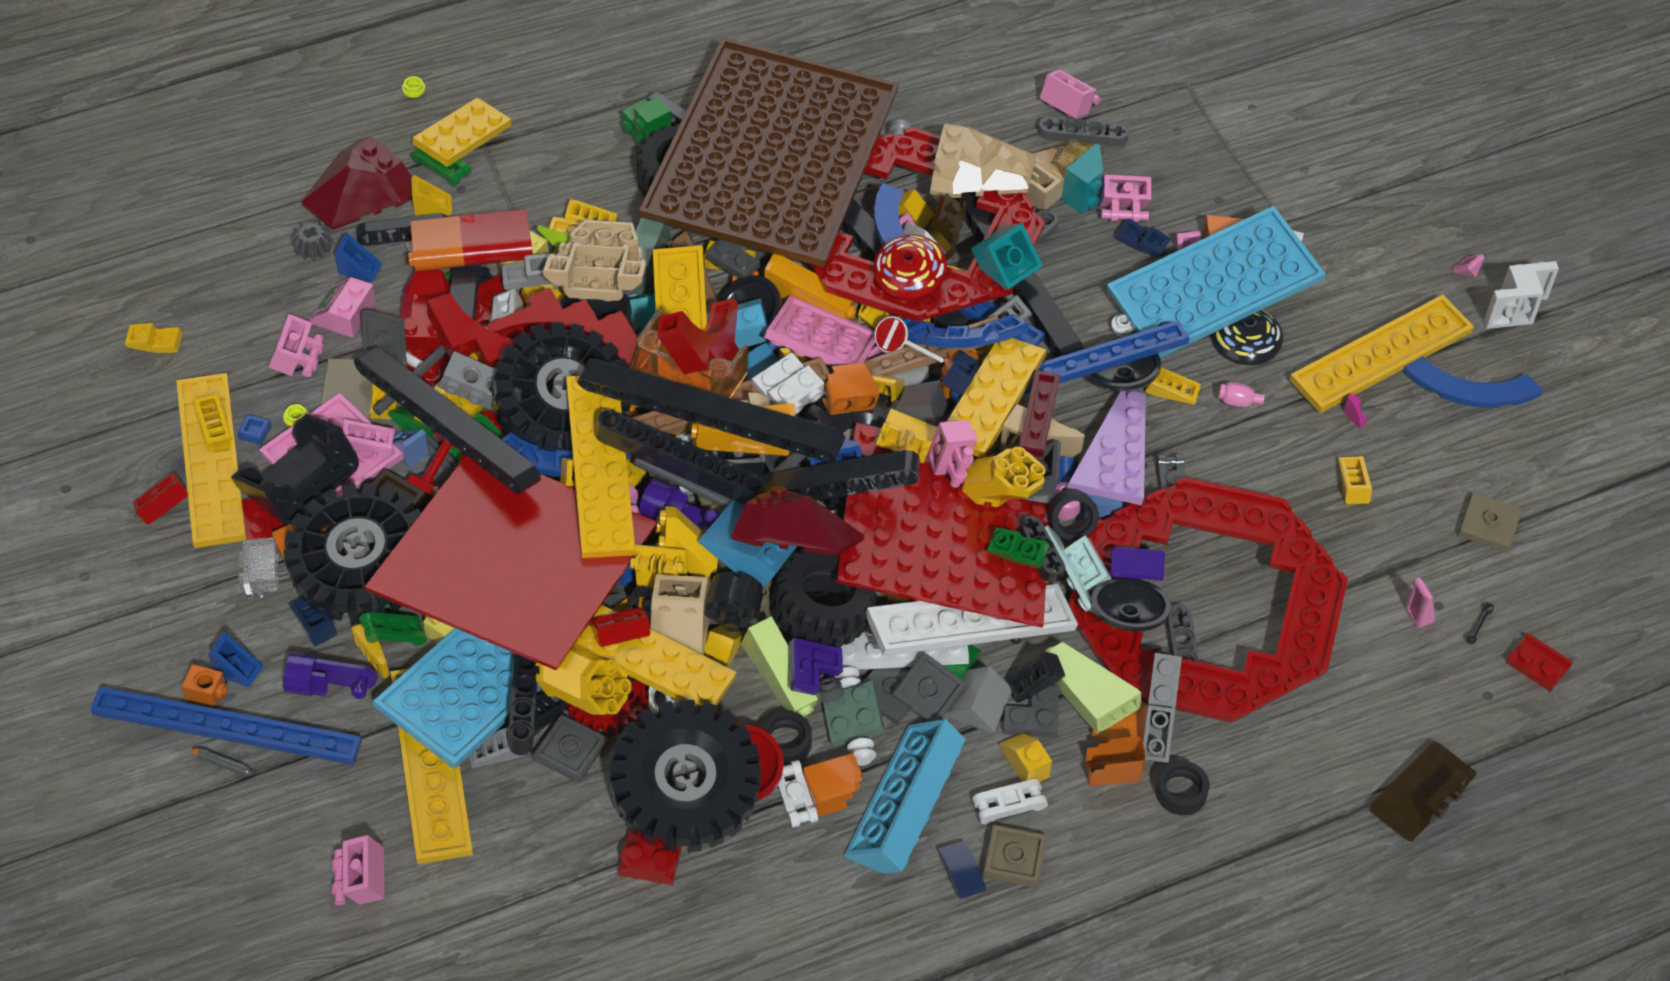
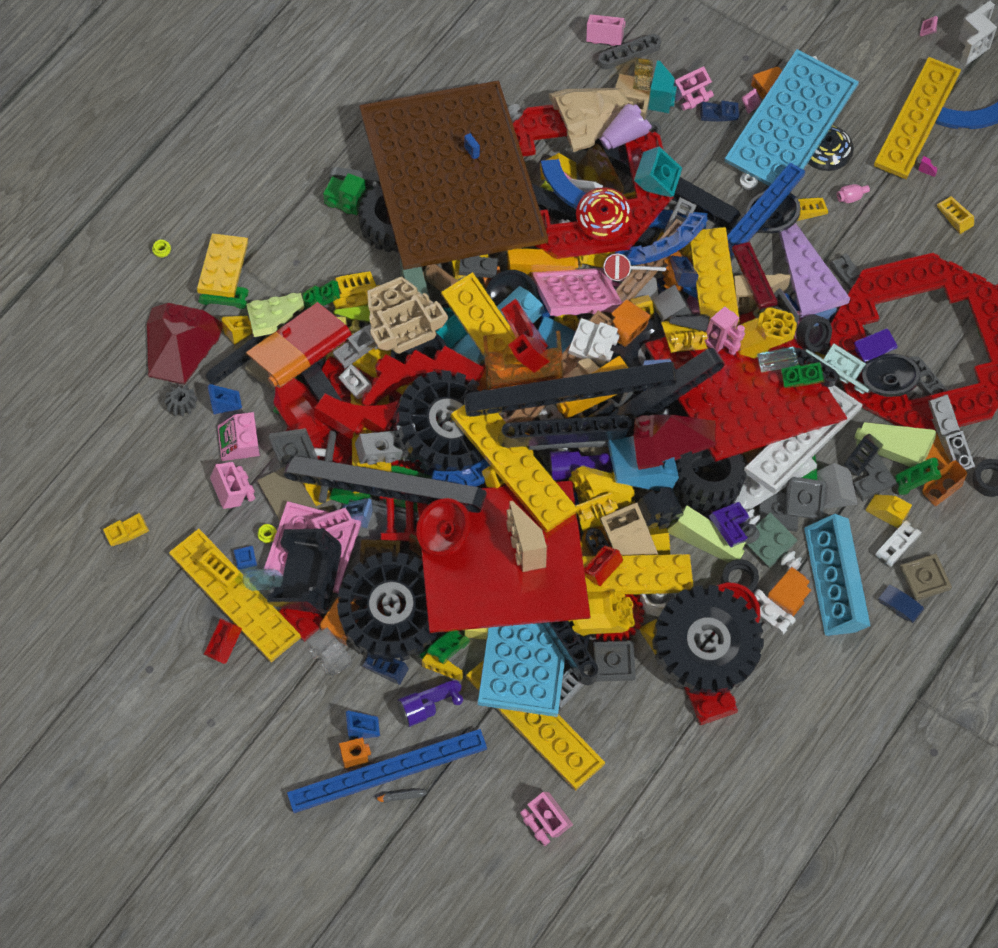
camera: 30 degrees left, 10 degrees up
(248, 455) = (262, 579): none -> clear light blue plate
(464, 487) = (435, 525): none -> red dish
(465, 198) = (270, 313): none -> yellowish green plate
(541, 548) = (527, 539): none -> tan slope
(544, 211) = (322, 295): none -> green slope
(810, 128) = (471, 146): none -> blue tile
(922, 422) = (697, 321): none -> black slope
(1002, 192) = (625, 127): none -> lavender cone
(1002, 516) = (777, 356): none -> clear light blue tile
(1085, 733) = (917, 476): none -> green plate

